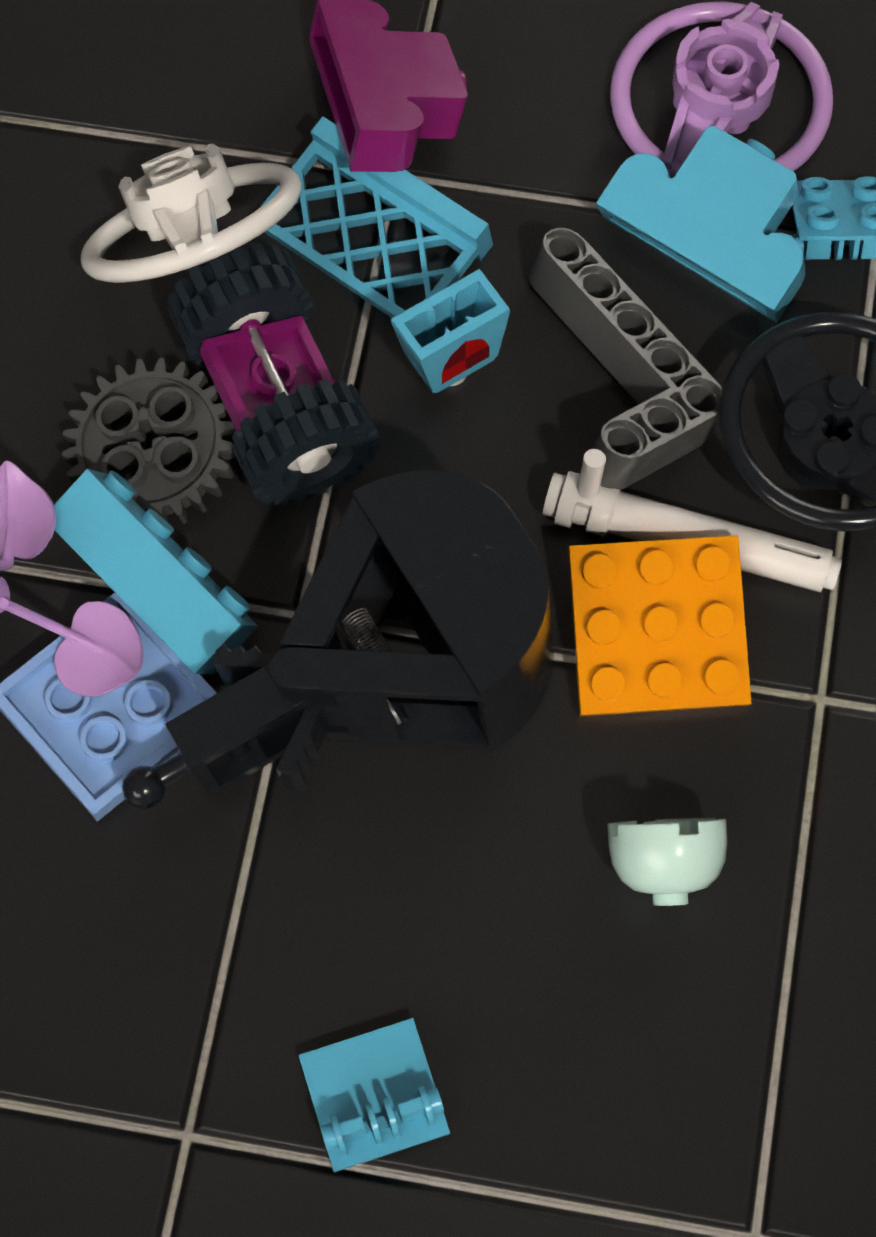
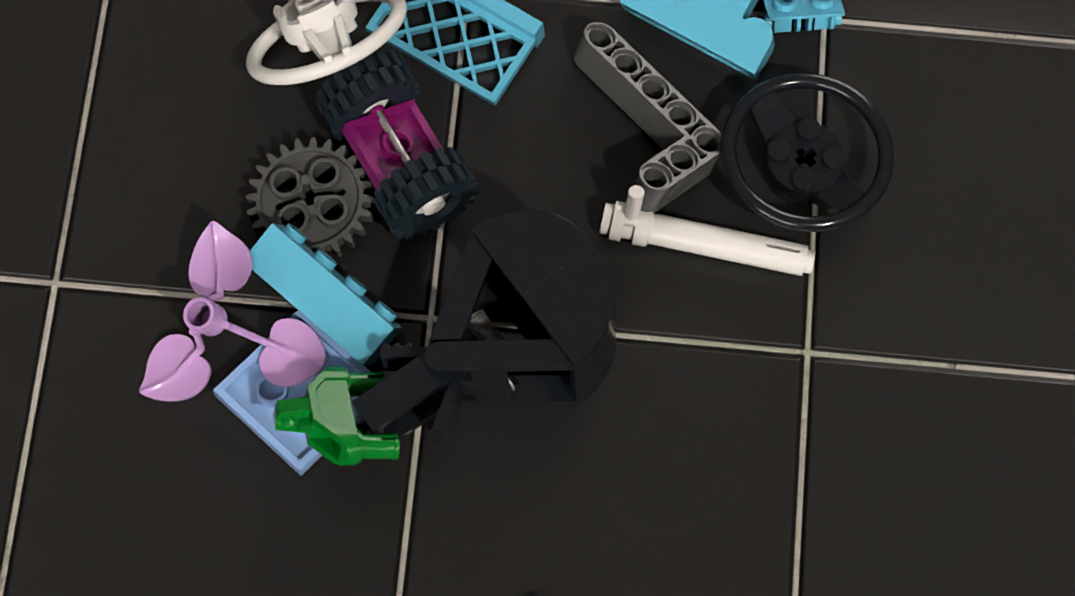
camera: 10 degrees left, 0 degrees up
(131, 745) = (329, 420): none -> green connector
(453, 331) = (520, 109): medium azure torso -> none
(659, 625) = (689, 308): light orange plate -> none
(668, 856) = (709, 469): light aqua cylinder -> none

